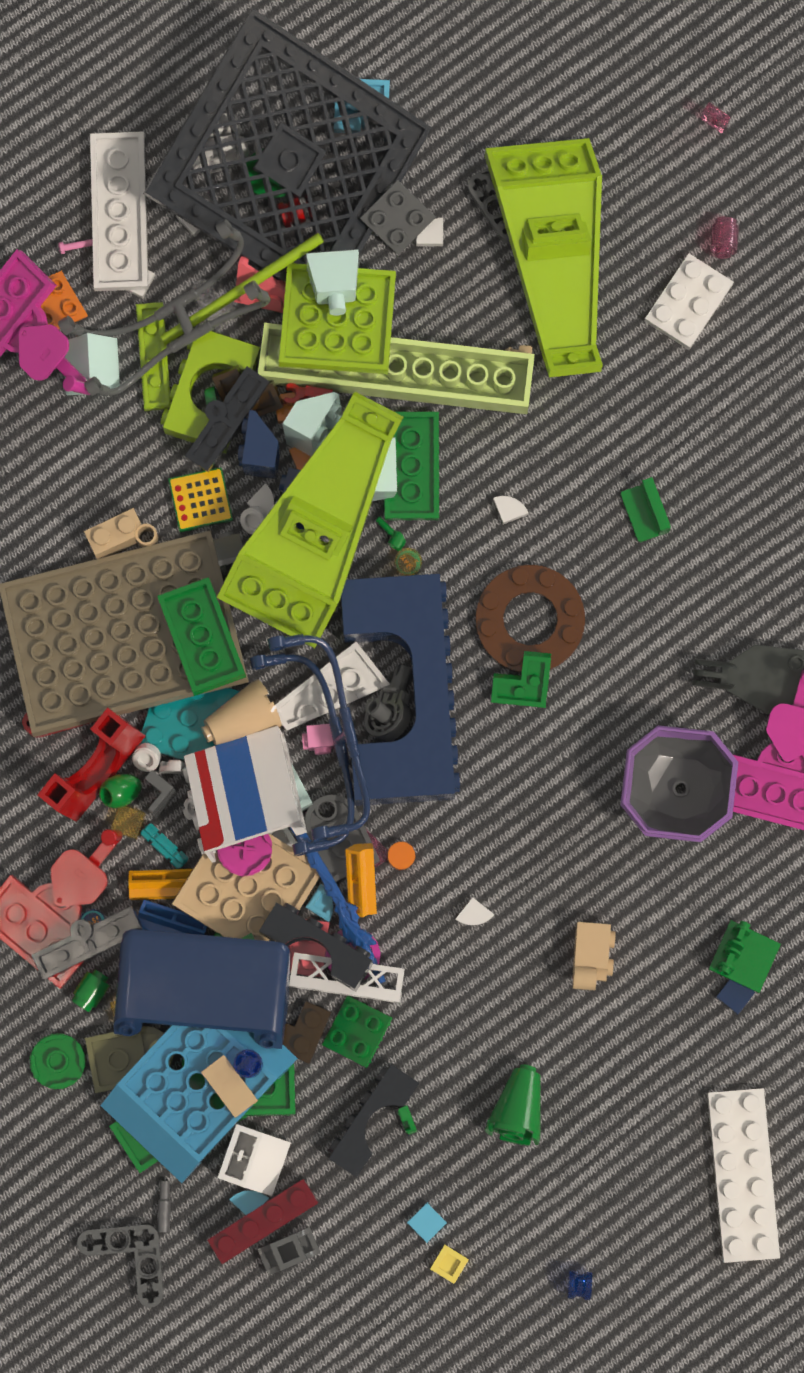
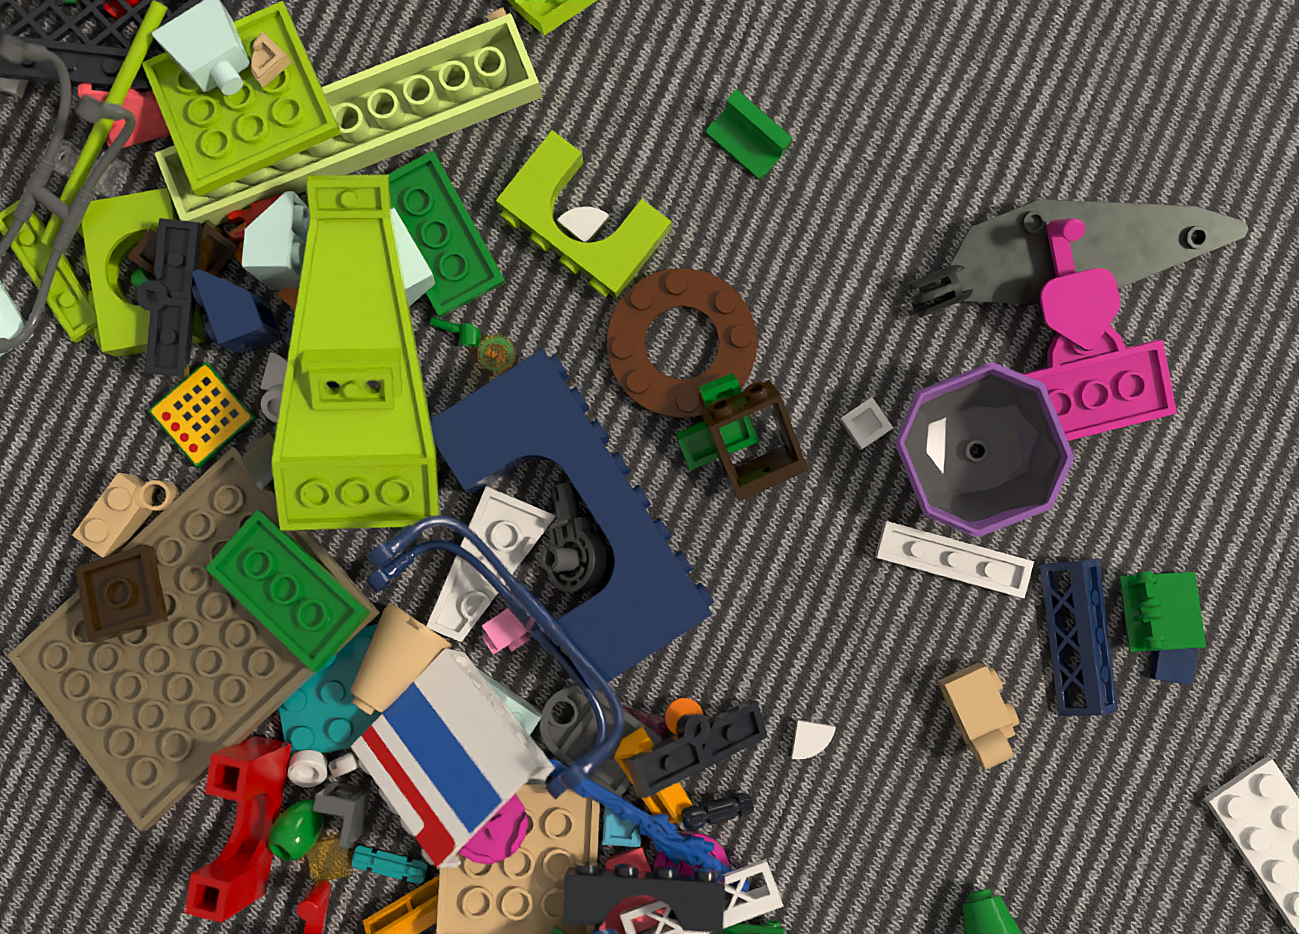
camera: 30 degrees left, 5 degrees up
(94, 583) = (121, 593): none -> dark brown plate
(367, 305) = (267, 60): none -> tan tile
(390, 924) = (717, 811): none -> black axle
(400, 872) = (695, 746): none -> black hinge
(510, 542) = (530, 204): none -> lime arch
(541, 727) = (764, 470): none -> dark brown window
(620, 734) = (866, 423): none -> white tile
(628, 850) = (954, 559): none -> white plate
(688, 944) = (1092, 638): none -> dark blue fence

